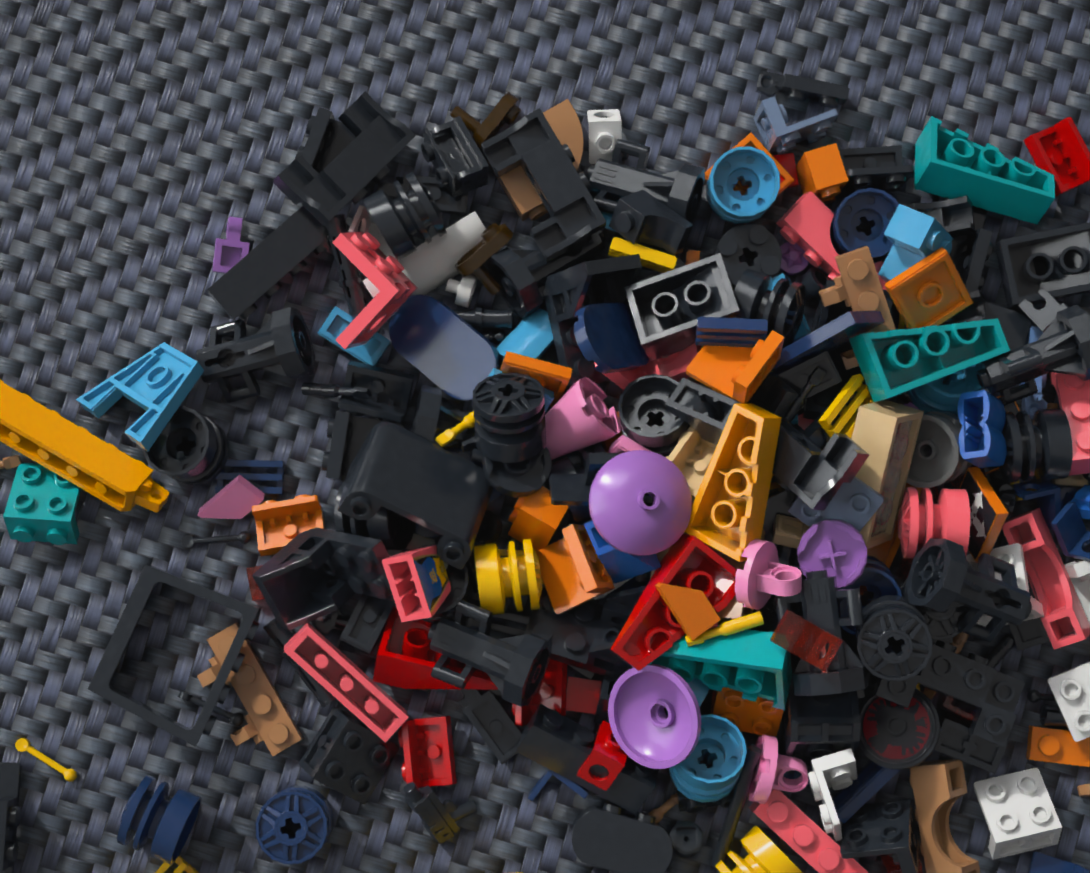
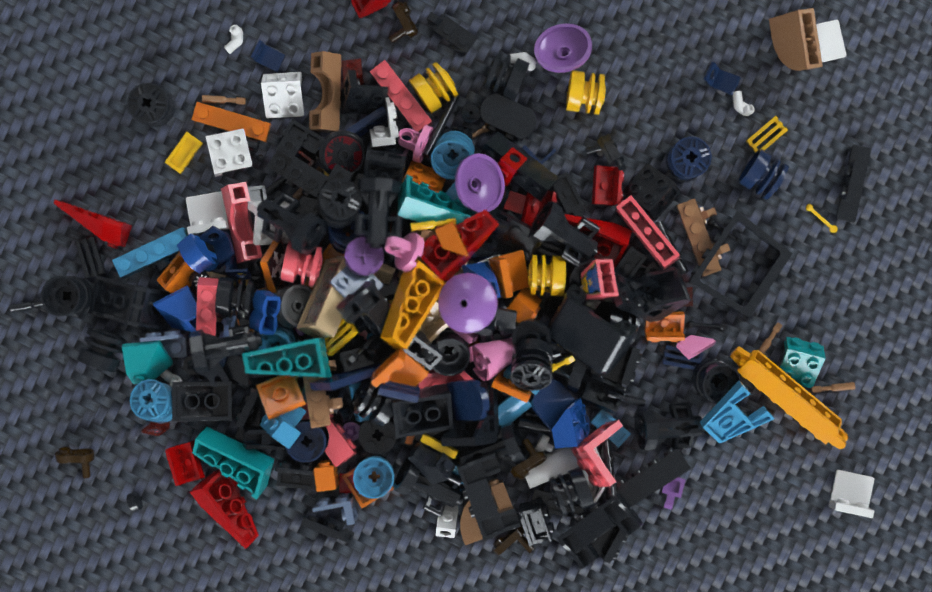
camera: 165 degrees left, 5 degrees up
(106, 529) = (767, 342): none -> medium nougat piece
(422, 325) = (571, 427): none -> blue slope
(805, 640) = (390, 210): clear red bracket -> none
(977, 97) = (224, 503): none -> red wedge

